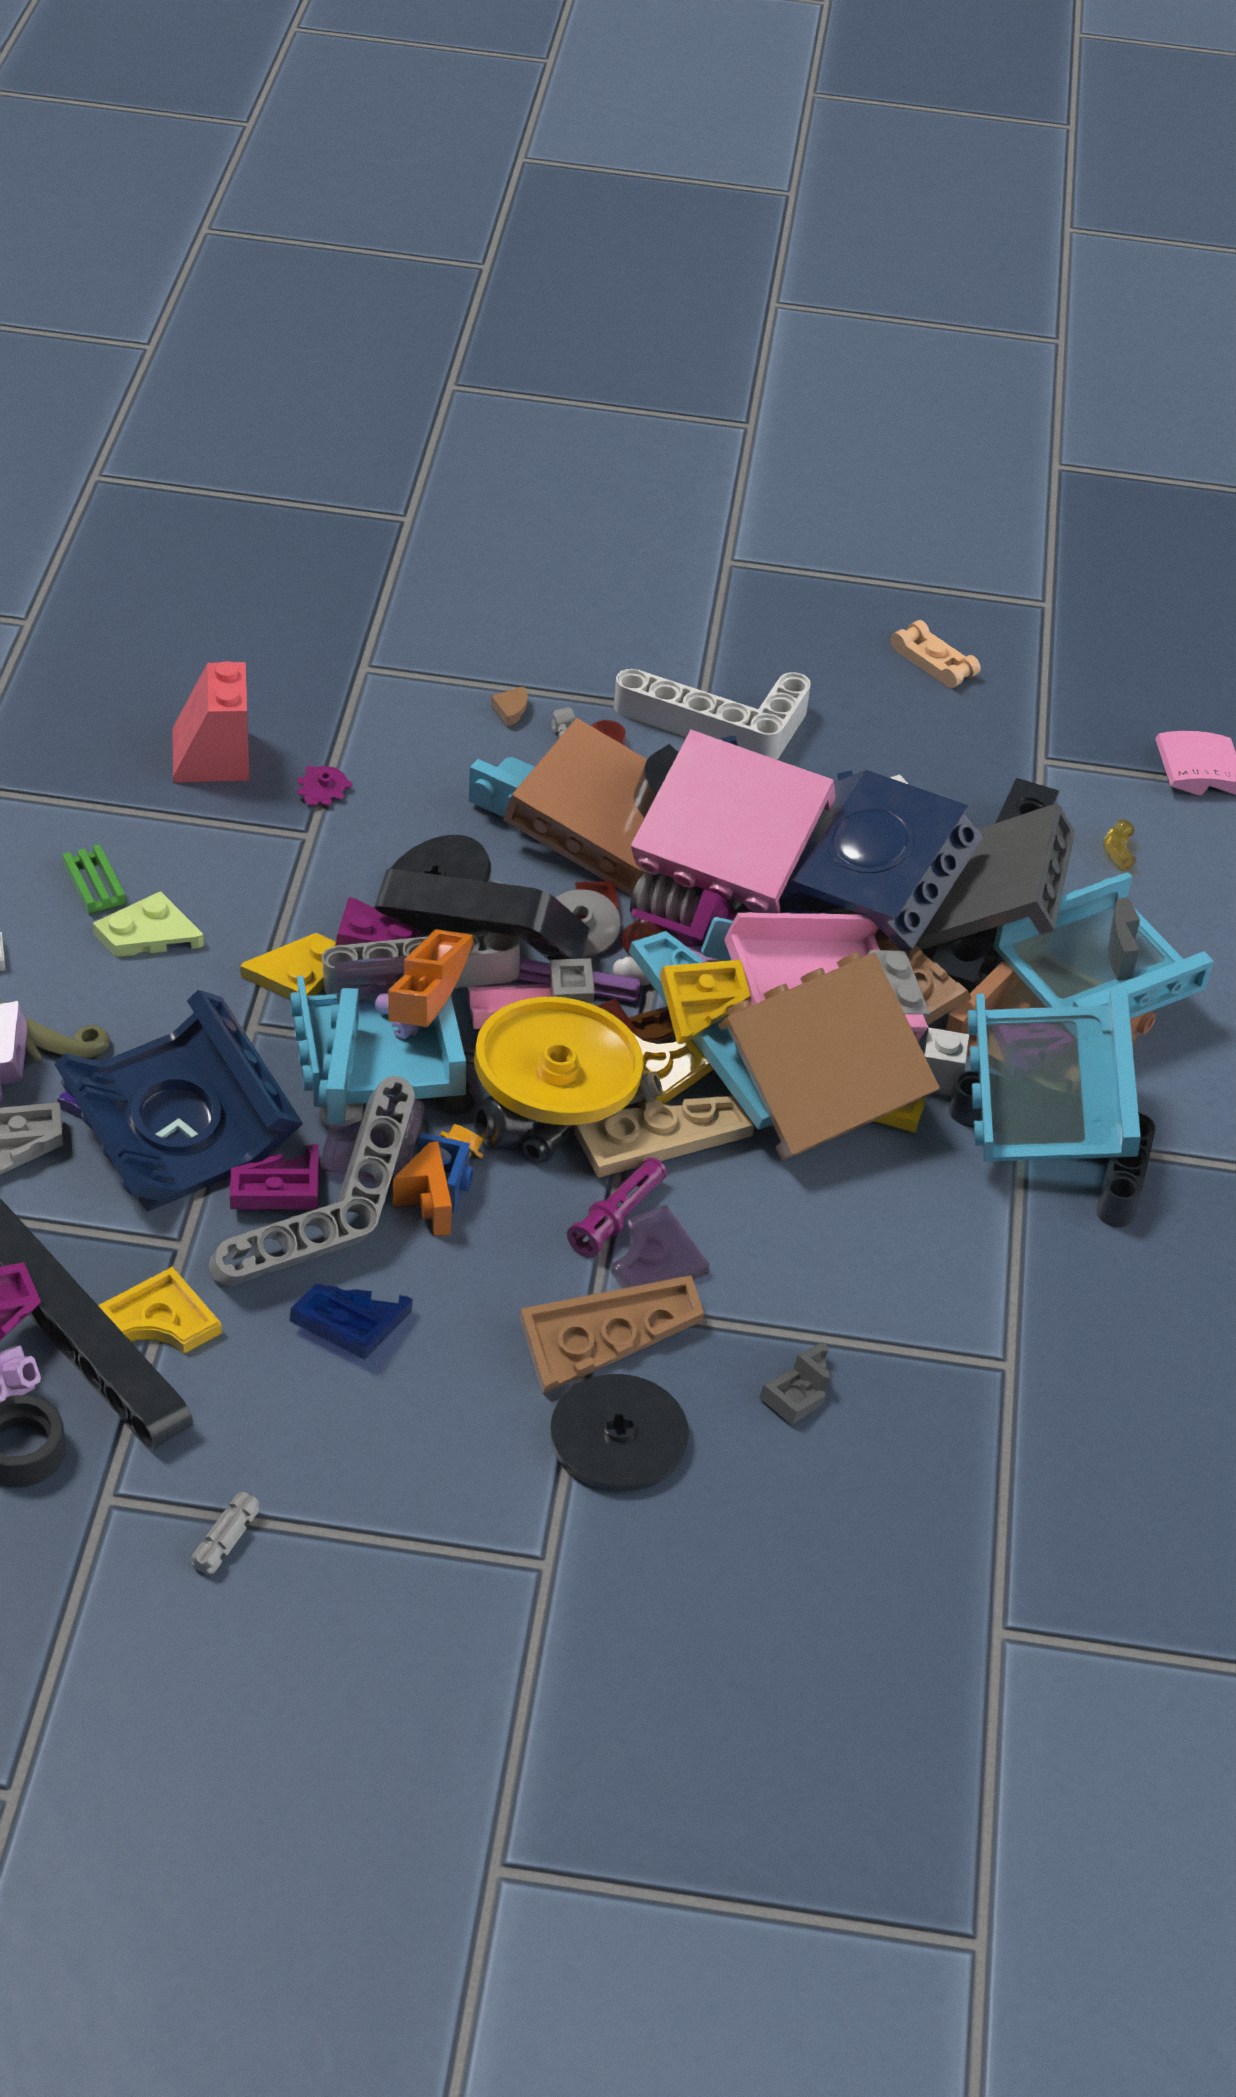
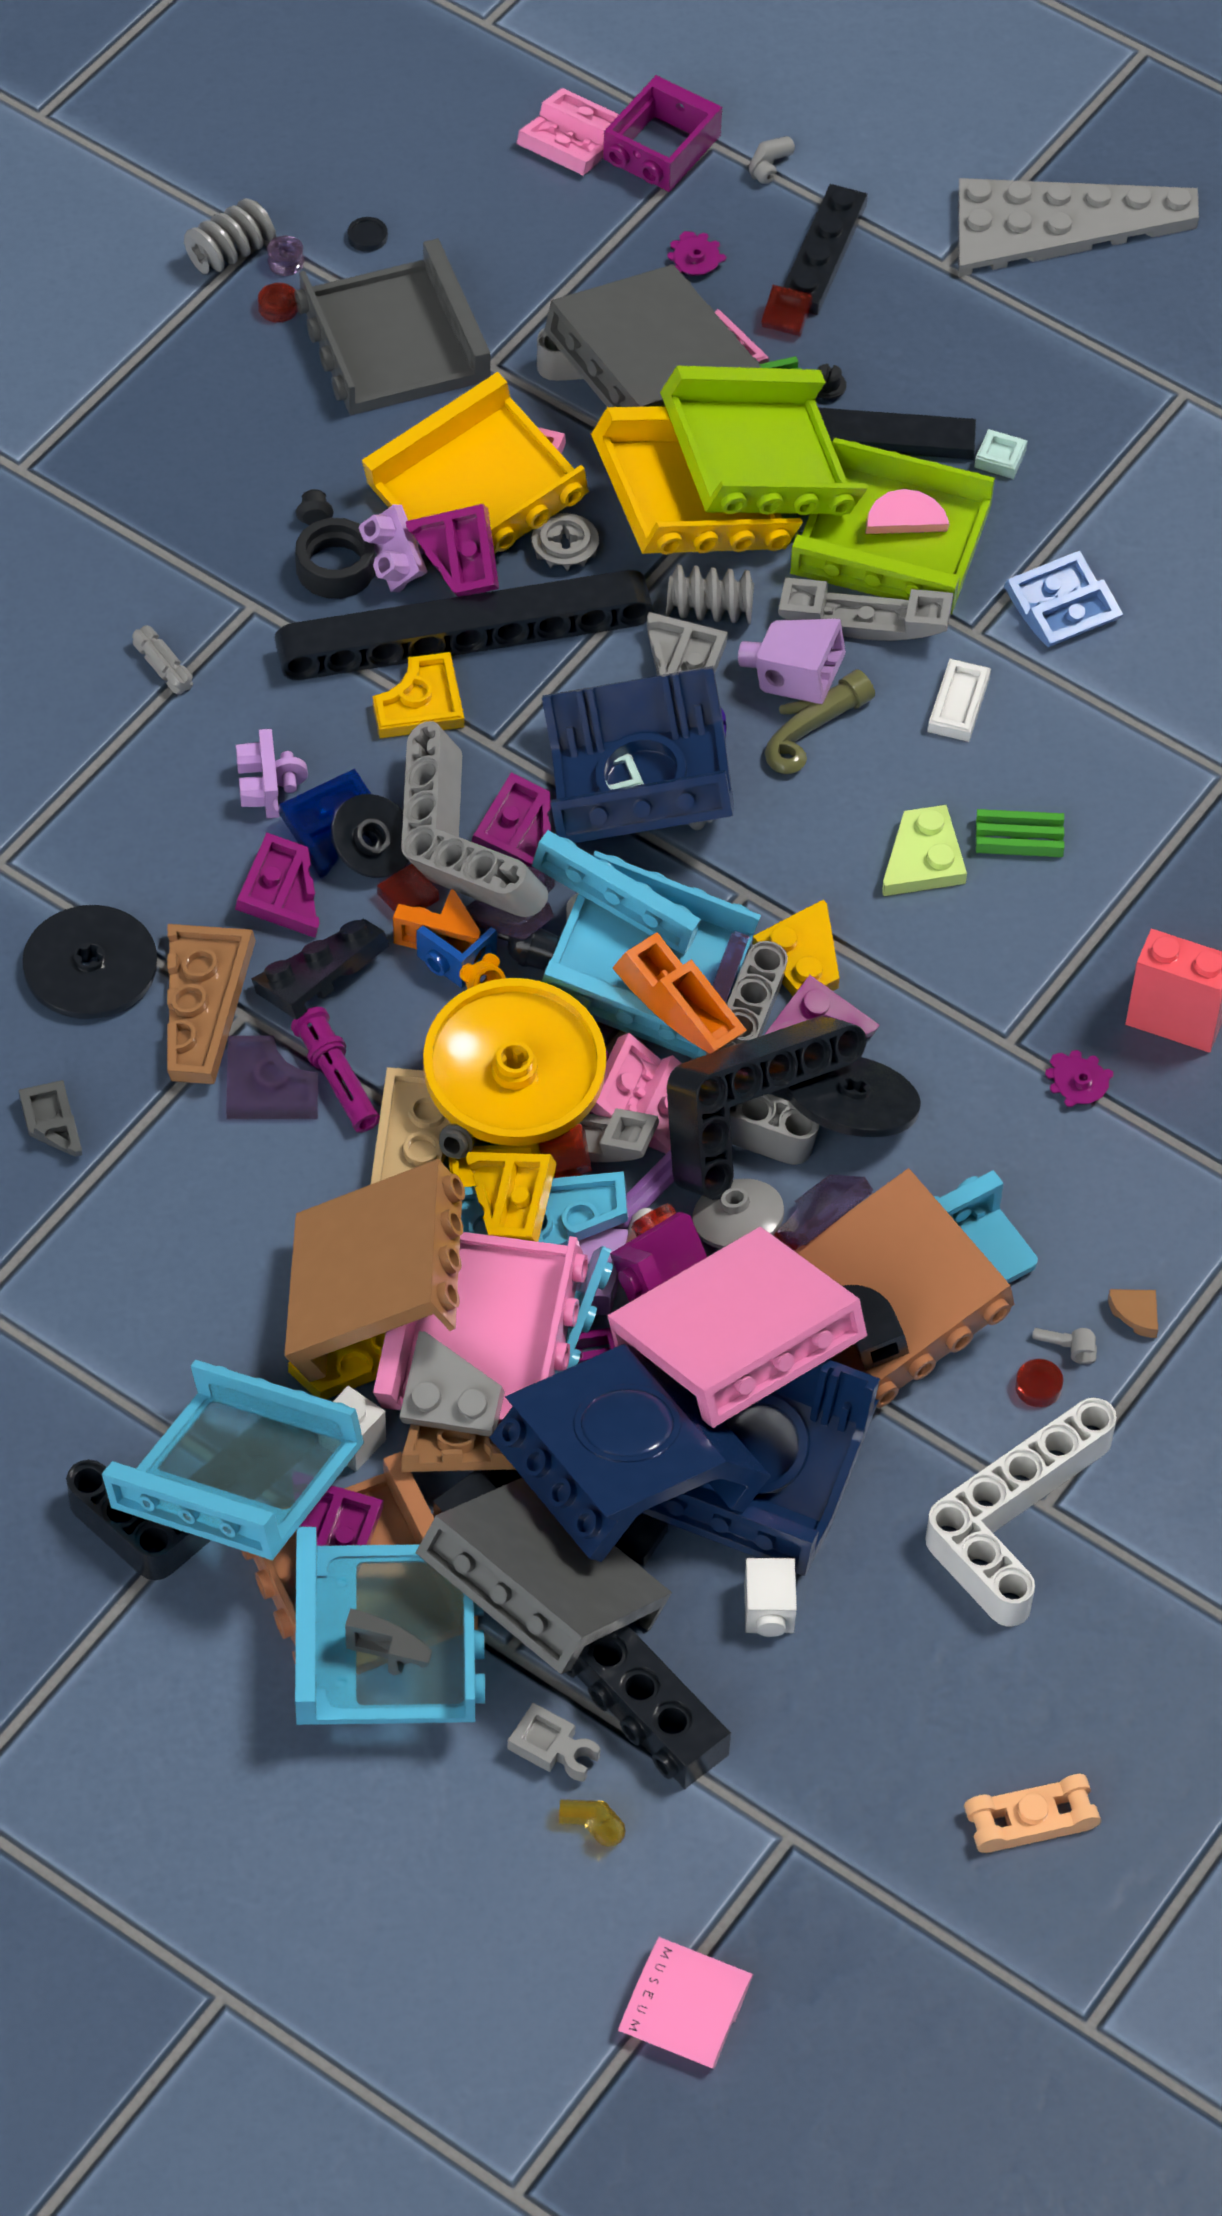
camera: 120 degrees right, 10 degrees up
(326, 1376) = (284, 772): none -> lavender hips
(358, 1269) = (380, 822): none -> black dish
(395, 1236) = (408, 888): none -> clear red tile
(448, 1322) = (281, 886): none -> magenta wing
(527, 1251) = (311, 972): none -> black wing
(557, 854) = (823, 1207): none -> clear purple tile
(1084, 871) = (548, 1739): none -> light grey plate

